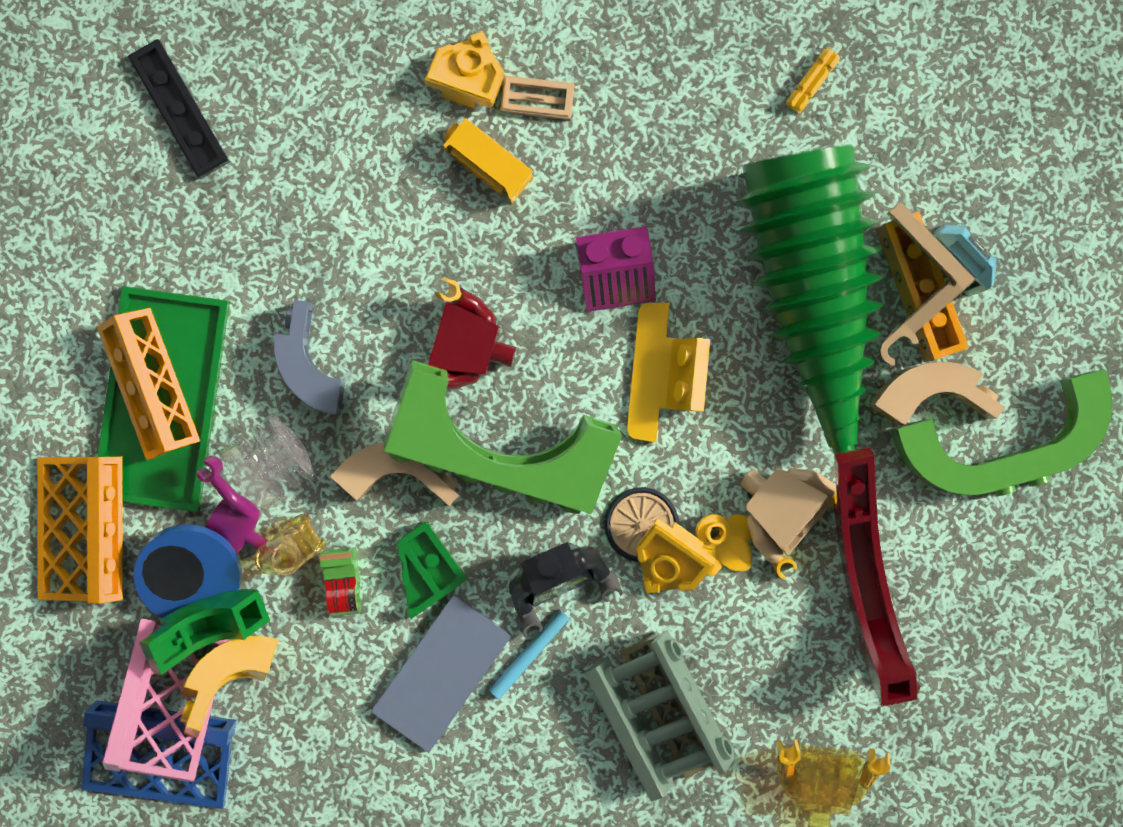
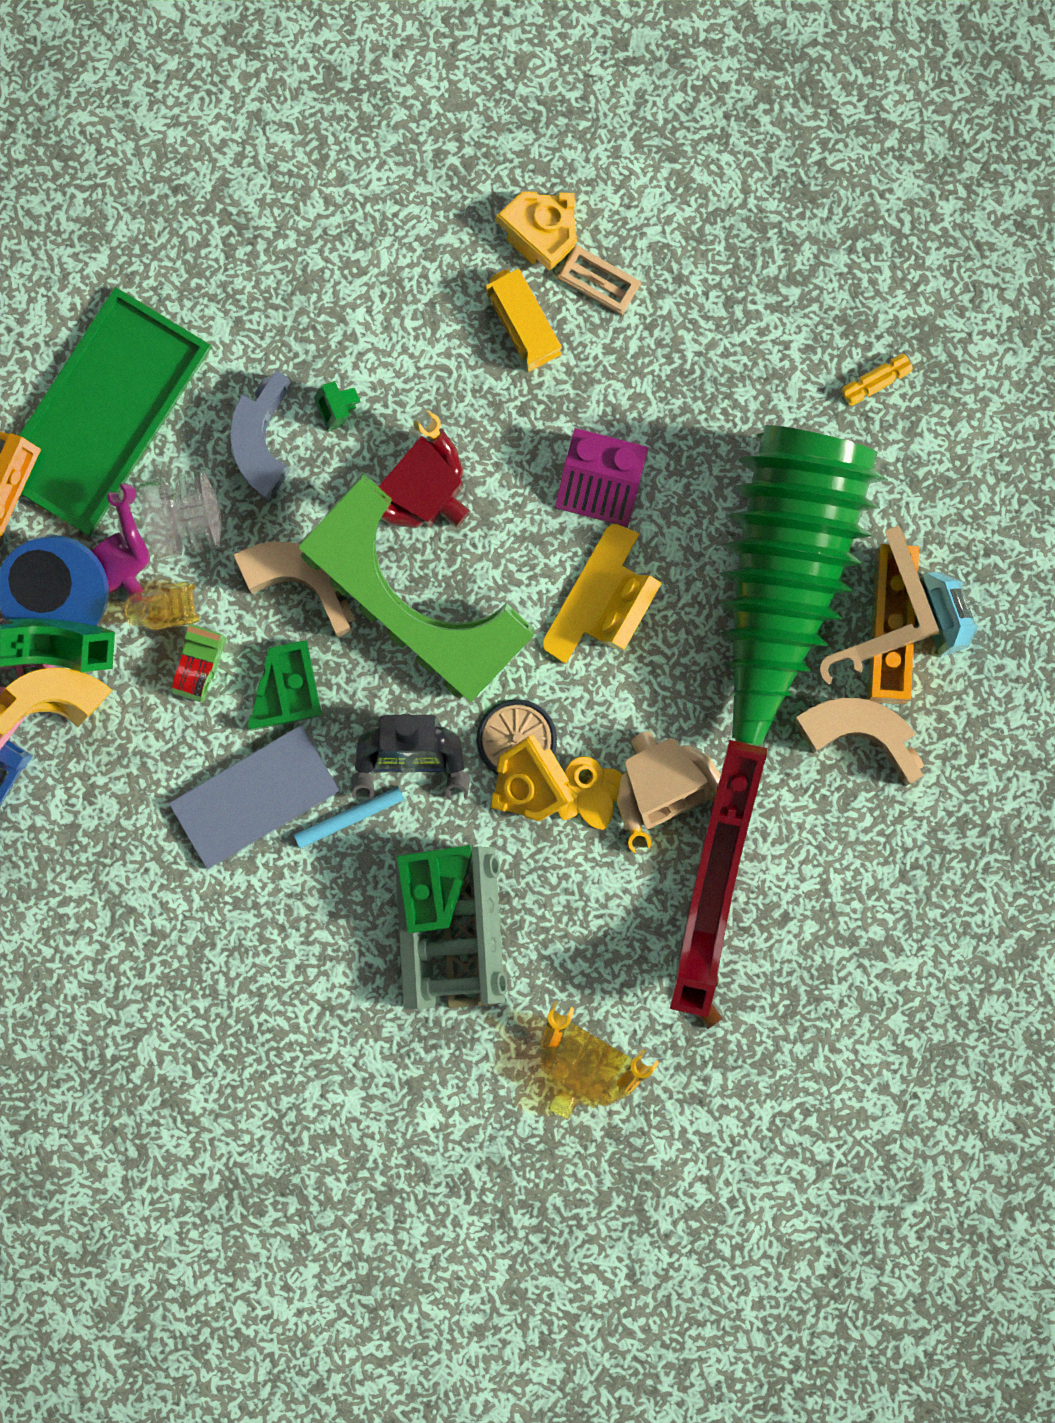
camera: 30 degrees right, 5 degrees down
(134, 379) = (91, 387): light orange fence -> none
(179, 109) = (246, 142): black tile -> none
(359, 305) = (335, 404): none -> green tile
(630, 690) = (432, 886): none -> green wing
(1086, 424) = (825, 796): bright green arch -> none

